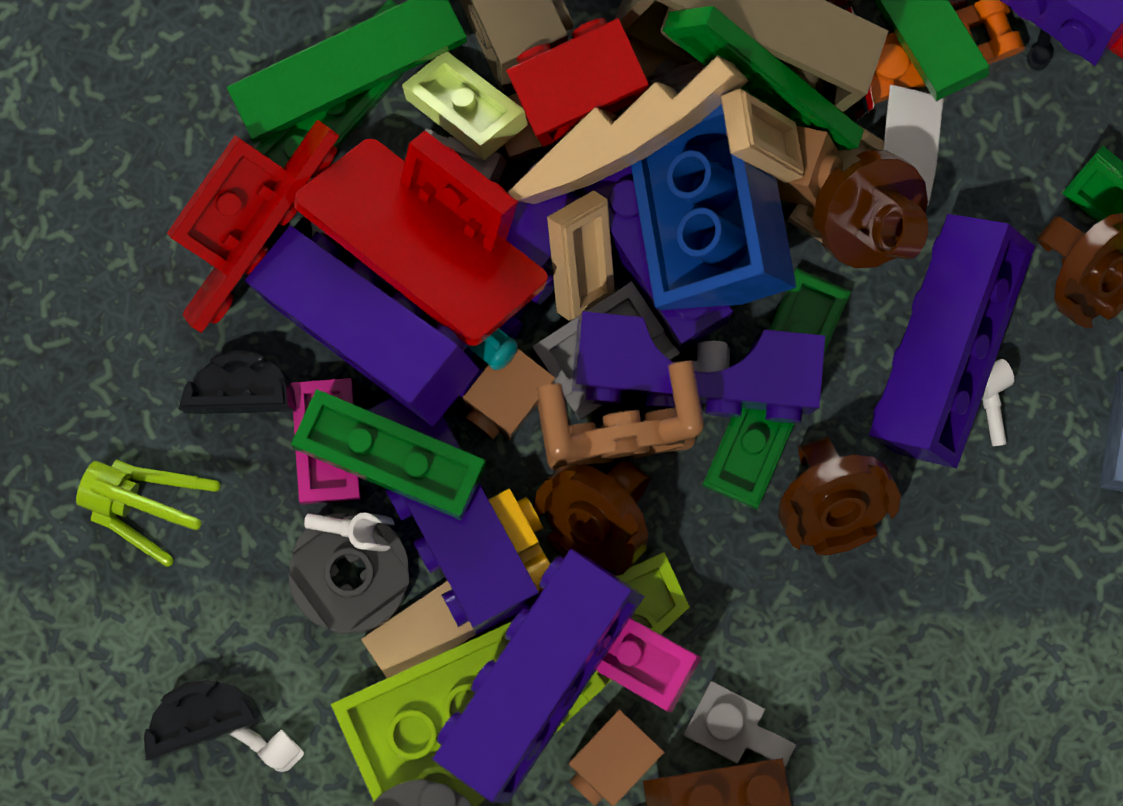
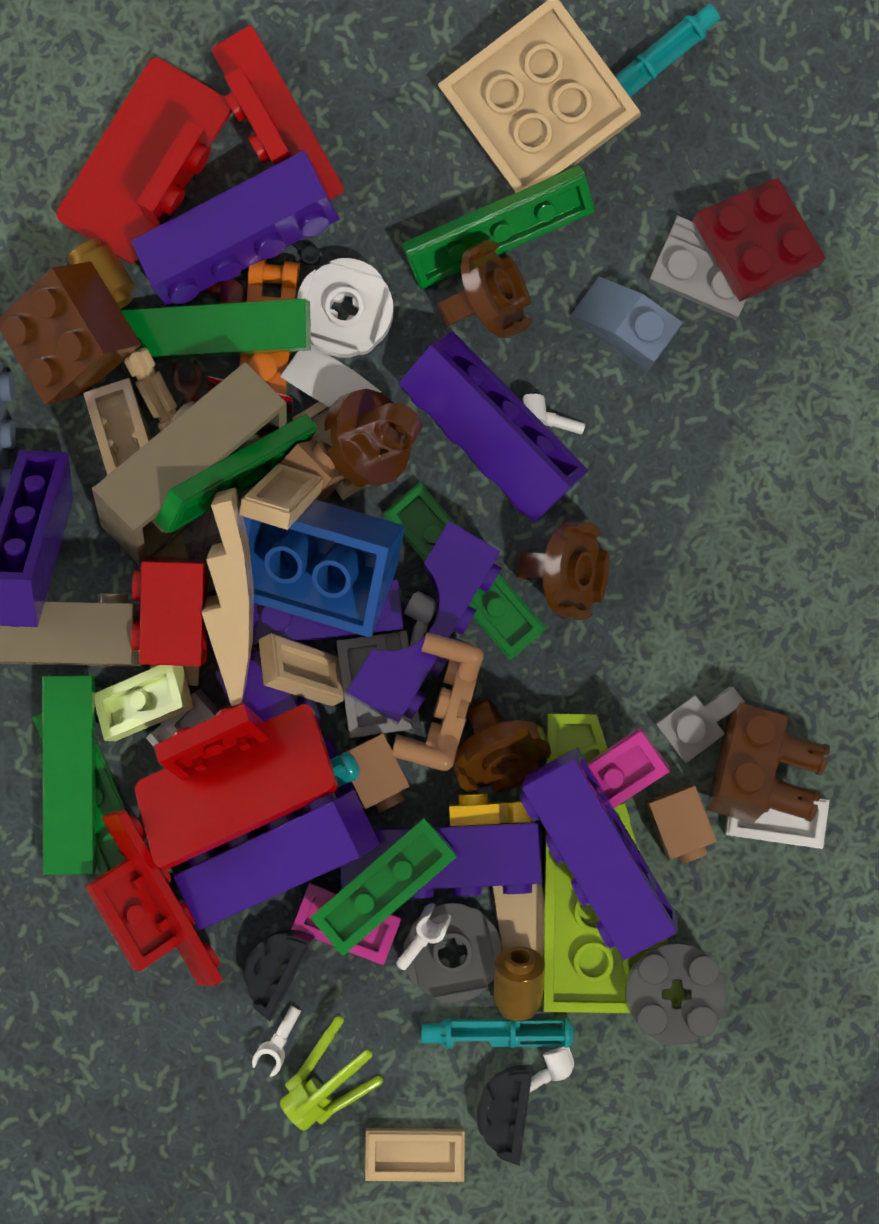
camera: 60 degrees left, 5 degrees up
(104, 639) = (415, 1154): none -> tan tile
(160, 429) = (275, 1045): none -> white hand
(283, 667) = (499, 1032): none -> teal piece
(350, 660) = (519, 982): none -> pearl gold brick
(1024, 145) = (370, 295): none -> white plate

